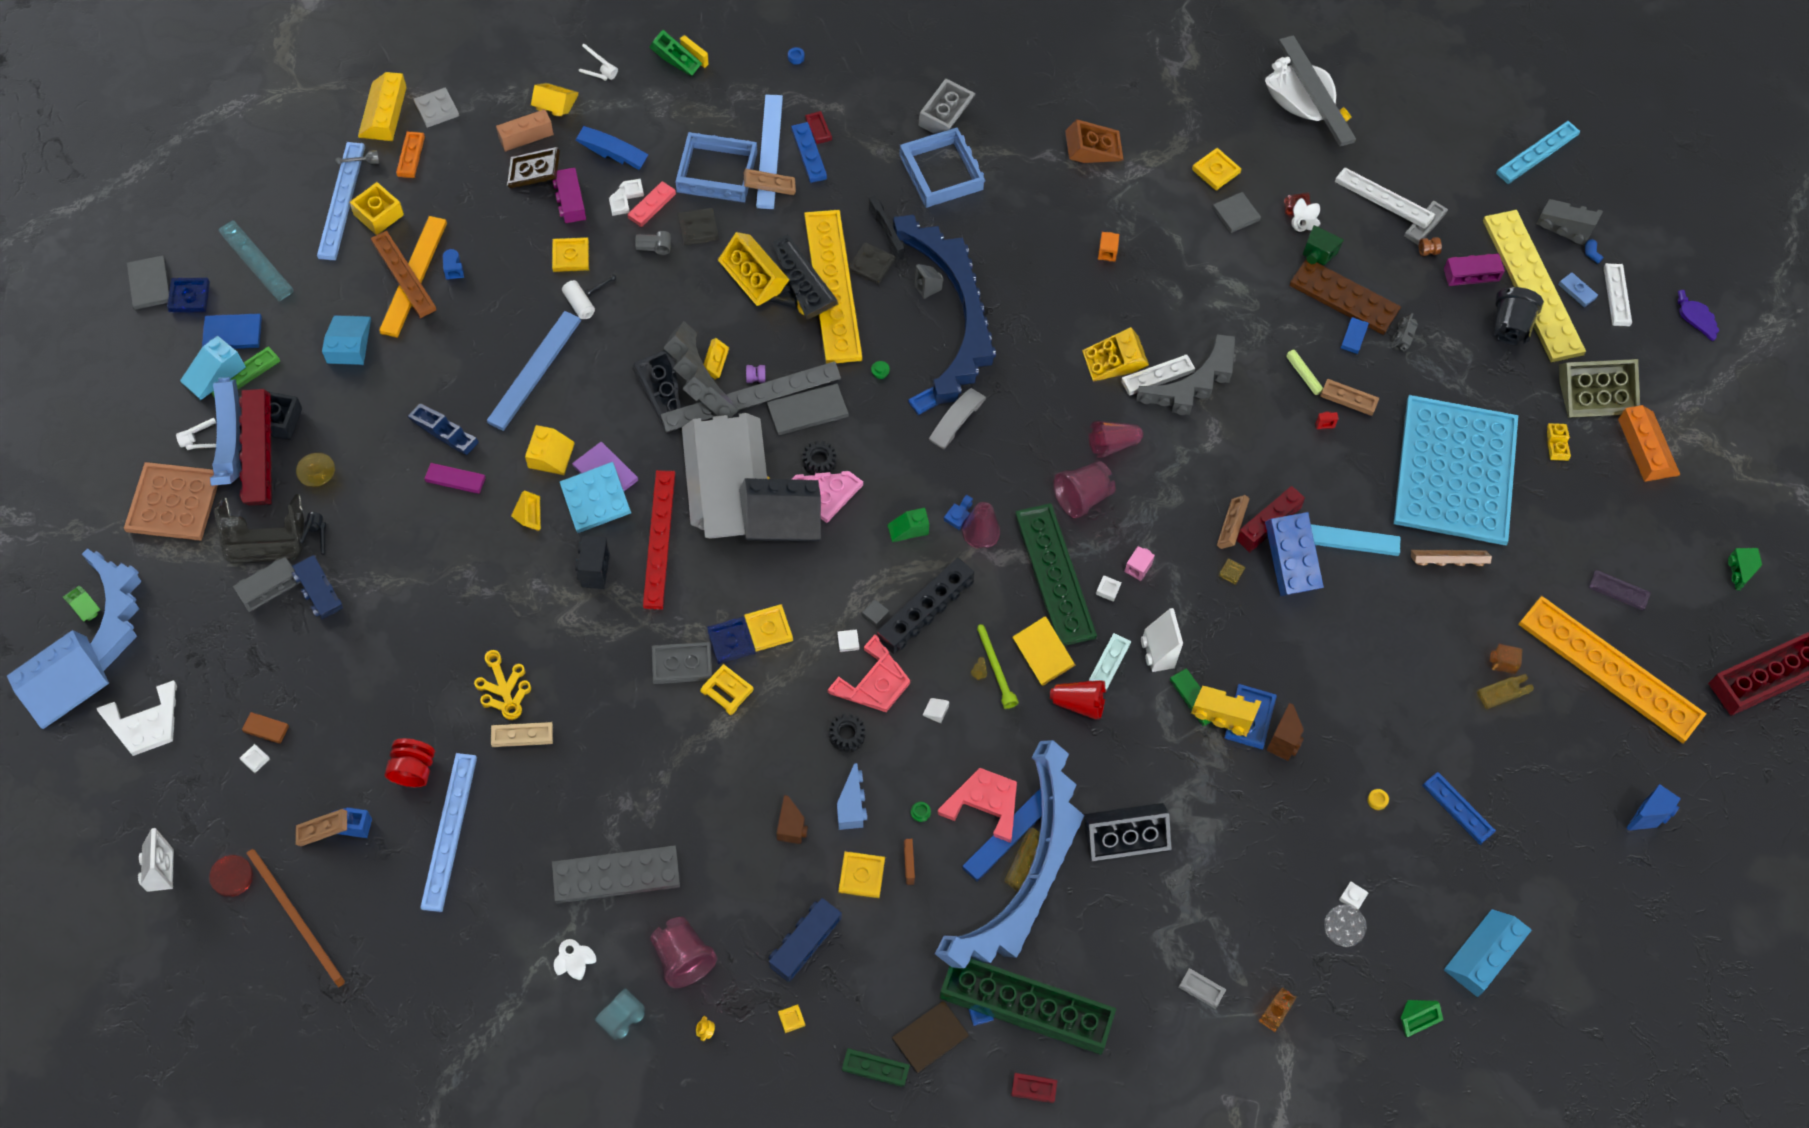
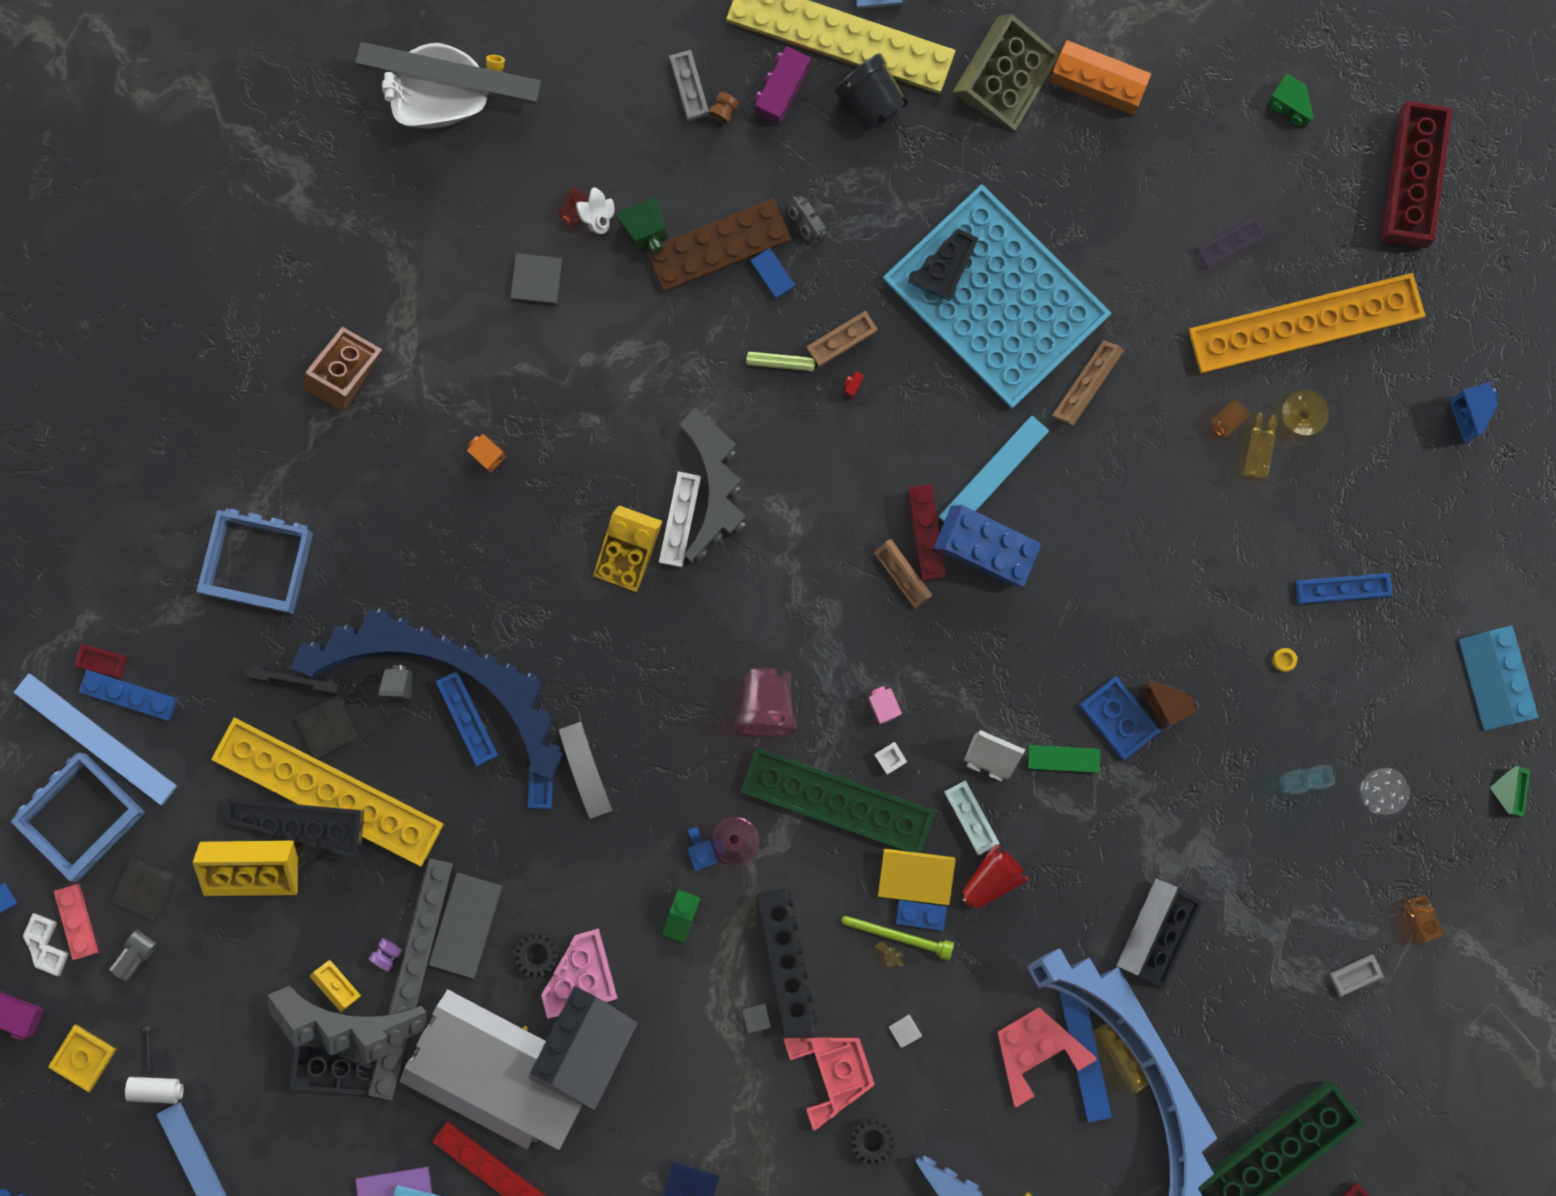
camera: 50 degrees left, 20 degrees up
(768, 627) = (701, 1143): yellow plate -> none
(769, 182) = (142, 772): medium nougat tile -> none
(848, 640) = (769, 1068): white tile -> none
(880, 369) = (470, 812): green plate -> none
(909, 861) = (1050, 1173): dark orange tile -> none
(920, 811) = (1004, 1123): green plate -> none
(937, 332) = (467, 718): none -> blue plate
(945, 107) = (180, 502): light grey slope -> none
(1020, 672) = (921, 915): none -> blue plate
(1113, 437) = (725, 625): clear pink cone -> none
(1216, 169) = (467, 258): yellow plate -> none
(1225, 710) = (1106, 746): yellow wedge -> none
(1232, 571) = (954, 615): clear yellow tile -> none
(1306, 857) = (1309, 779): none -> clear light blue brick
(1353, 896) = (1362, 760): white plate -> none
(1385, 198) = (630, 105): white tile -> none
(1444, 424) = (944, 269): none -> black wing
(1558, 441) = (1035, 166): yellow slope -> none
(1558, 699) = (1313, 405): none -> clear yellow dish

